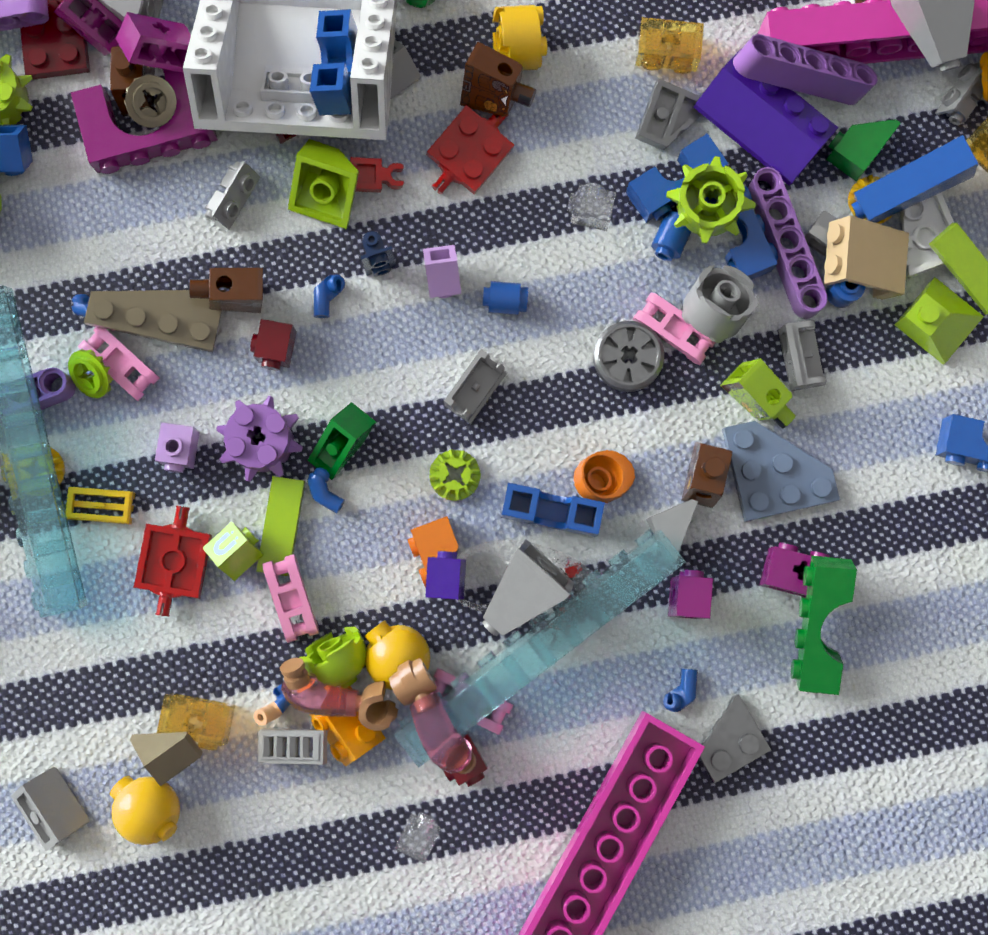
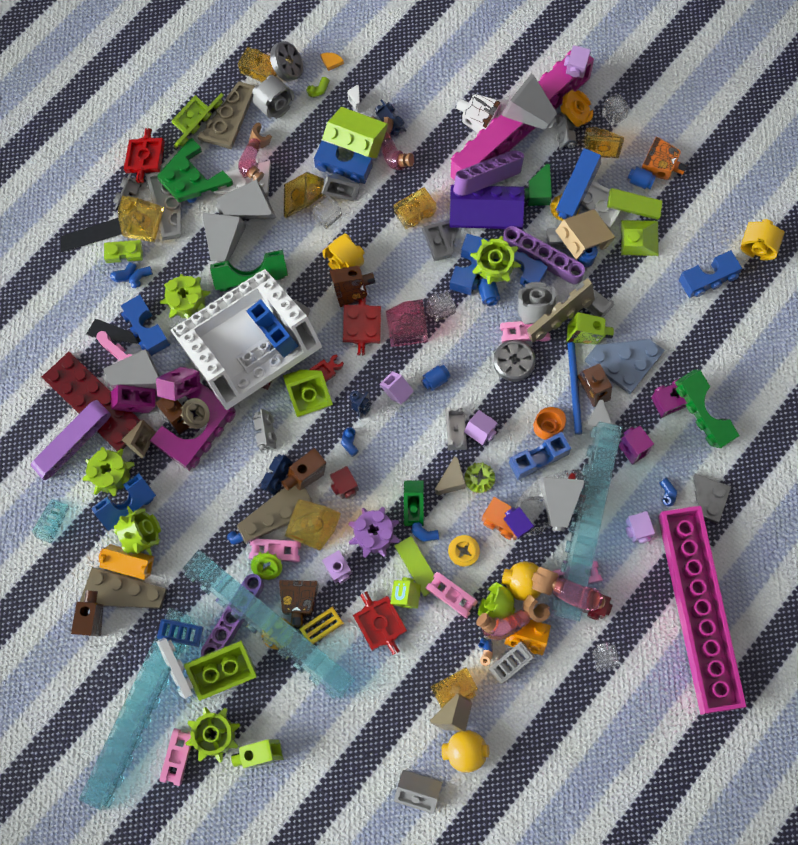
camera: 30 degrees left, 10 degrees down
(58, 79) = (139, 438): none -> dark tan slope
(95, 448) = (298, 599): none -> torso
(187, 267) = (280, 466): none -> dark blue hinge
(187, 365) = (312, 524): none -> clear yellow slope
(342, 546) = (462, 541): none -> yellow gear
(415, 448) = (452, 479): none -> dark tan slope
(508, 411) = (481, 427): none -> lavender brick
(527, 195) = (407, 323): none -> clear pink slope
(604, 708) = (639, 528): none -> lavender brick
(677, 455) = (574, 388): none -> blue piece
(742, 341) = (562, 311): none -> dark tan wing

